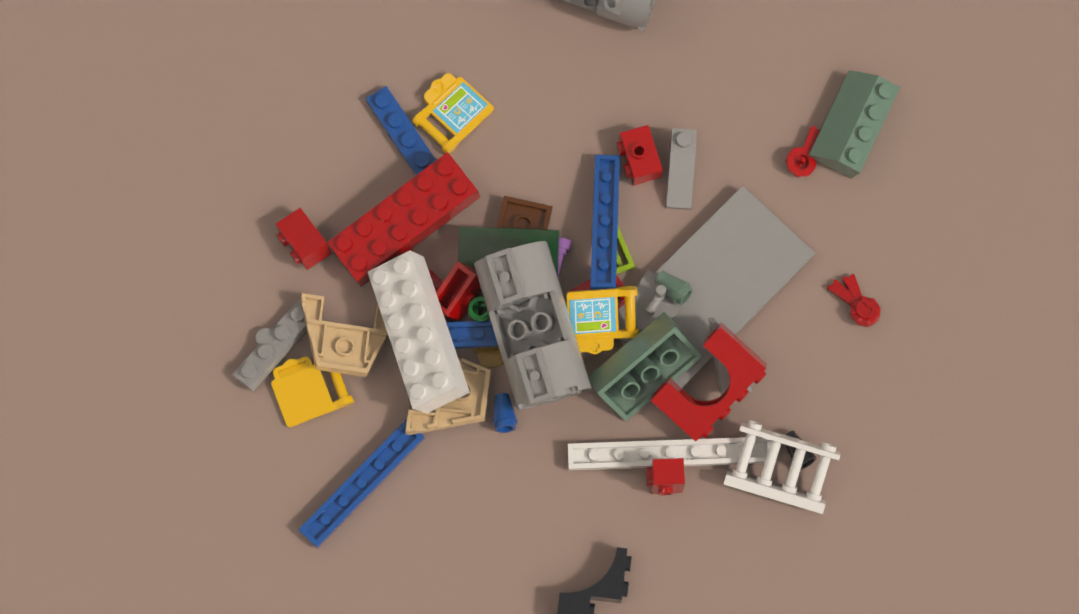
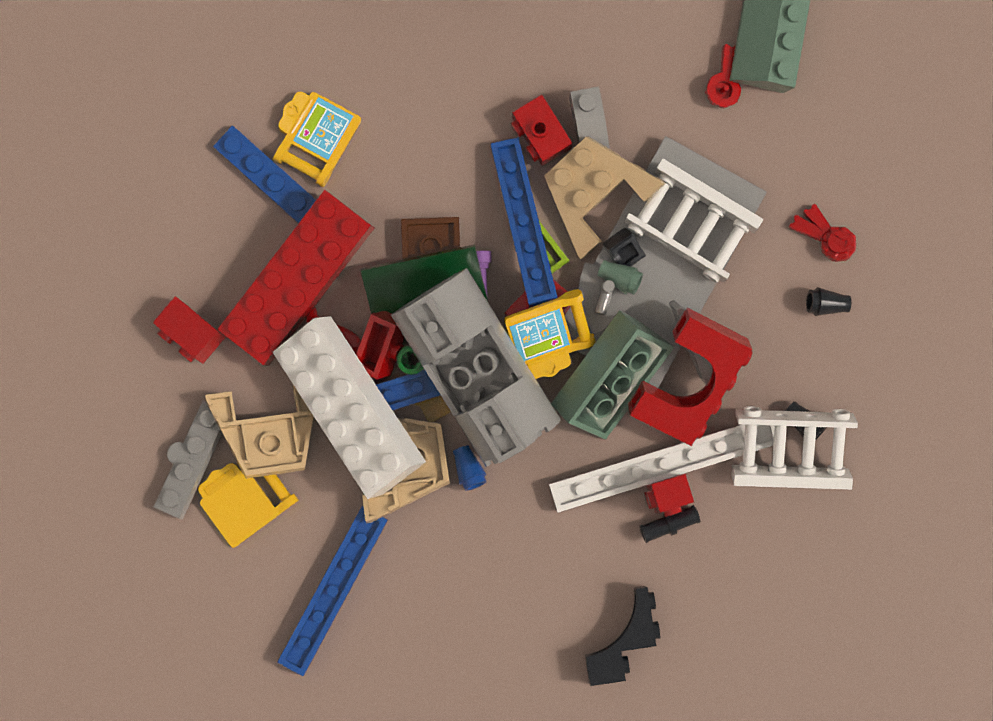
camera: 15 degrees left, 10 degrees up
(661, 504) = (669, 524): none -> black pin
(665, 203) = (585, 180): none -> tan wing
(683, 266) = (624, 248): none -> black slope
(753, 235) = (718, 208): none -> white fence
(842, 356) = (827, 302): none -> black cone

